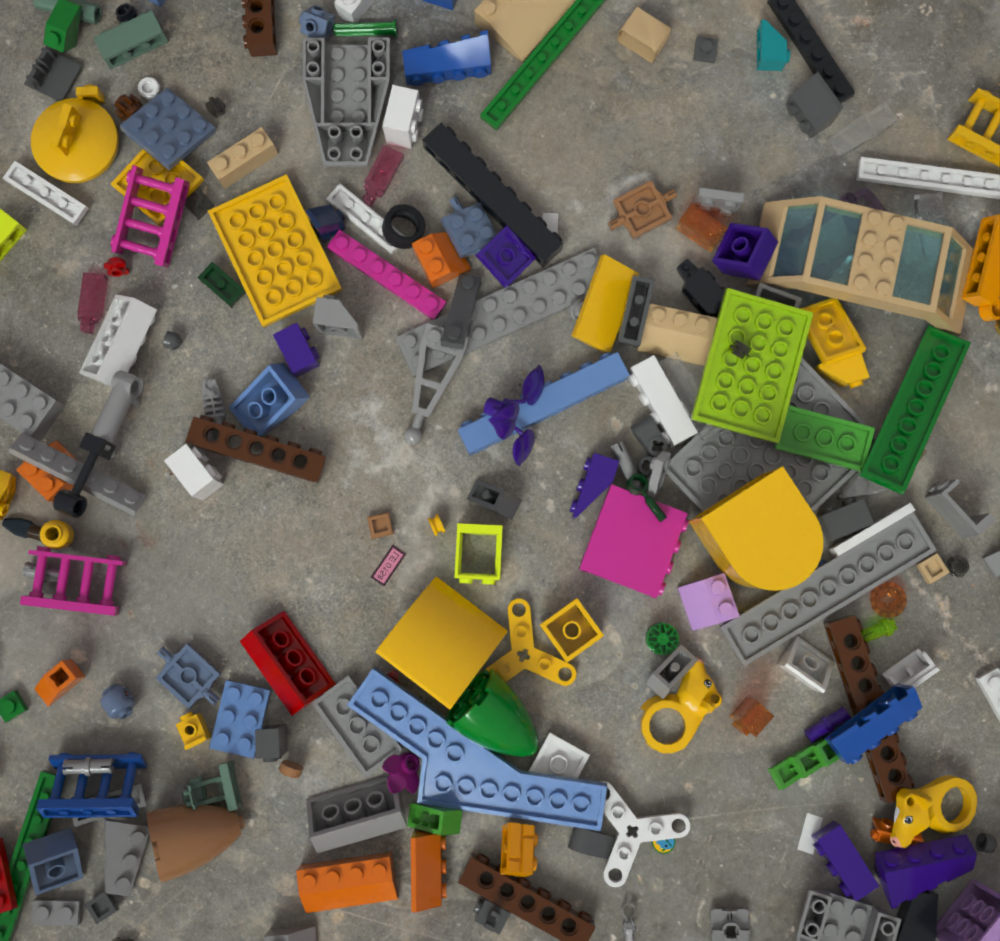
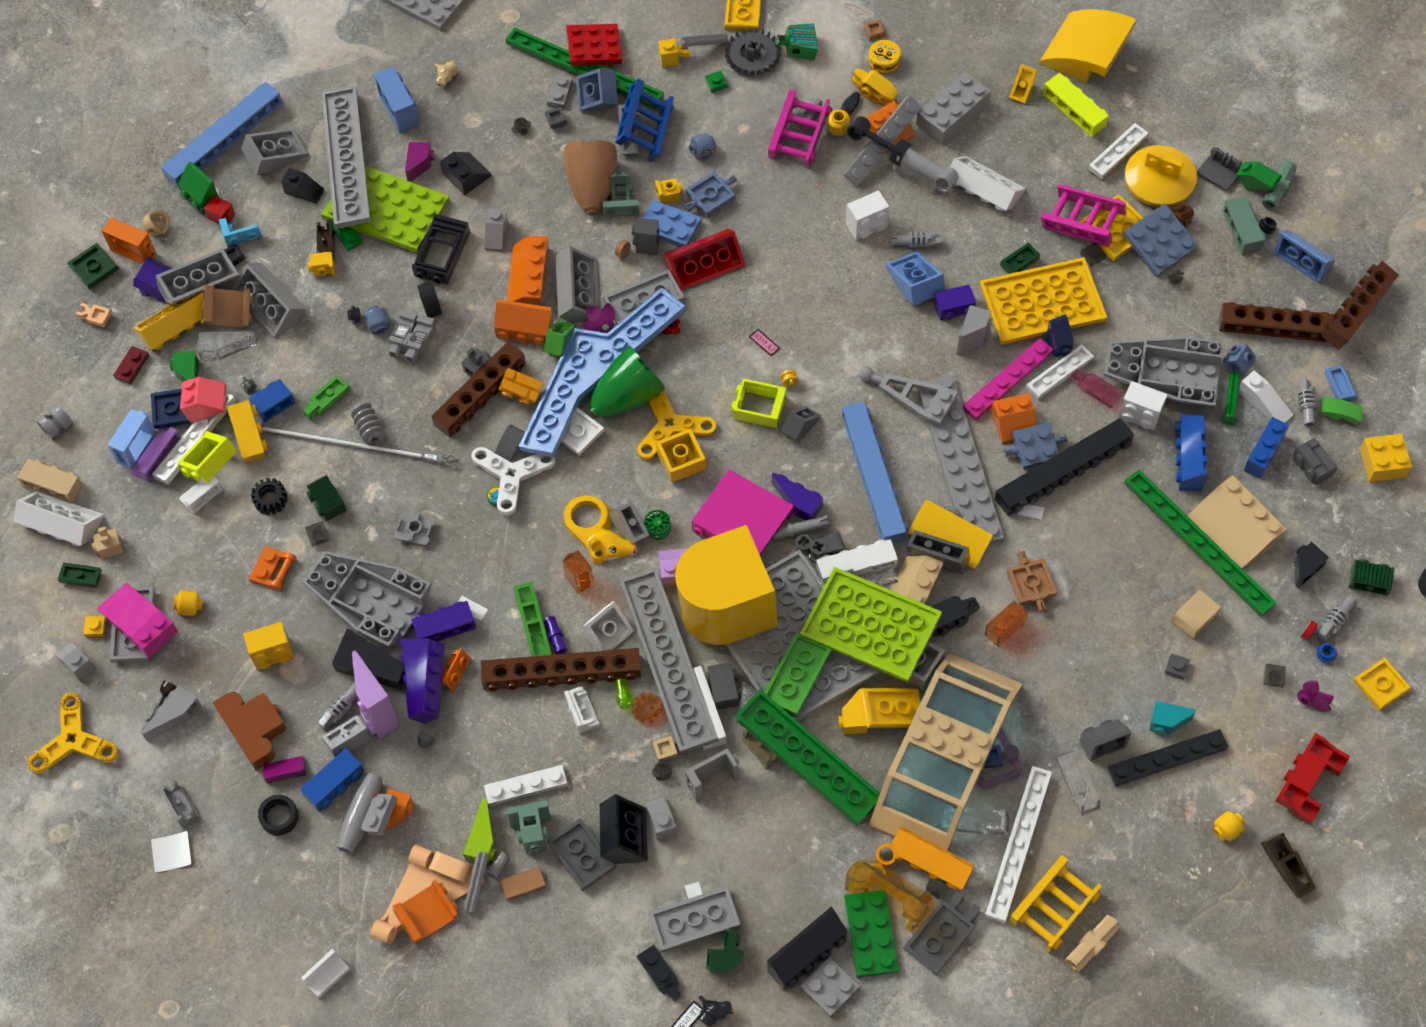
camera: 105 degrees right, 20 degrees down
(59, 681) = (727, 111): orange slope -> none
(88, 766) = (659, 118): light grey pin -> none
(90, 93) = (1199, 190): yellow plate -> none
(91, 301) = (1022, 171): clear pink hinge -> none
(116, 267) = (1047, 189): red plate -> none
(123, 853) = (588, 130): light grey wing -> none
(149, 88) = (1200, 234): white tile -> none
(171, 340) = (979, 219): dark grey hinge -> none
(202, 426) = (893, 220): reddish brown brick -> none
(242, 158) = (1126, 288): tan brick -> none
(380, 525) = (798, 341): medium nougat tile -> none
(406, 212) = (1060, 393): black tyre -> none
(441, 642) = (693, 359): yellow slope -> none
(461, 311) = (963, 420): dark grey plate -> none
(505, 256) = (1006, 463): dark purple plate -> none
(505, 414) = (858, 412): dark purple plant -> none
(654, 507) = (772, 529): dark green piece -> none
(659, 468) = (793, 541): light grey plate -> none
(718, 200) = (1026, 637): light grey plate -> none
(740, 349) = (885, 609): clear smoke plate -> none
(745, 251) = (976, 648): dark purple brick -> none
(874, 723) = (548, 655): blue wedge -> none
(922, 809) = (470, 684): yellow animal -> none

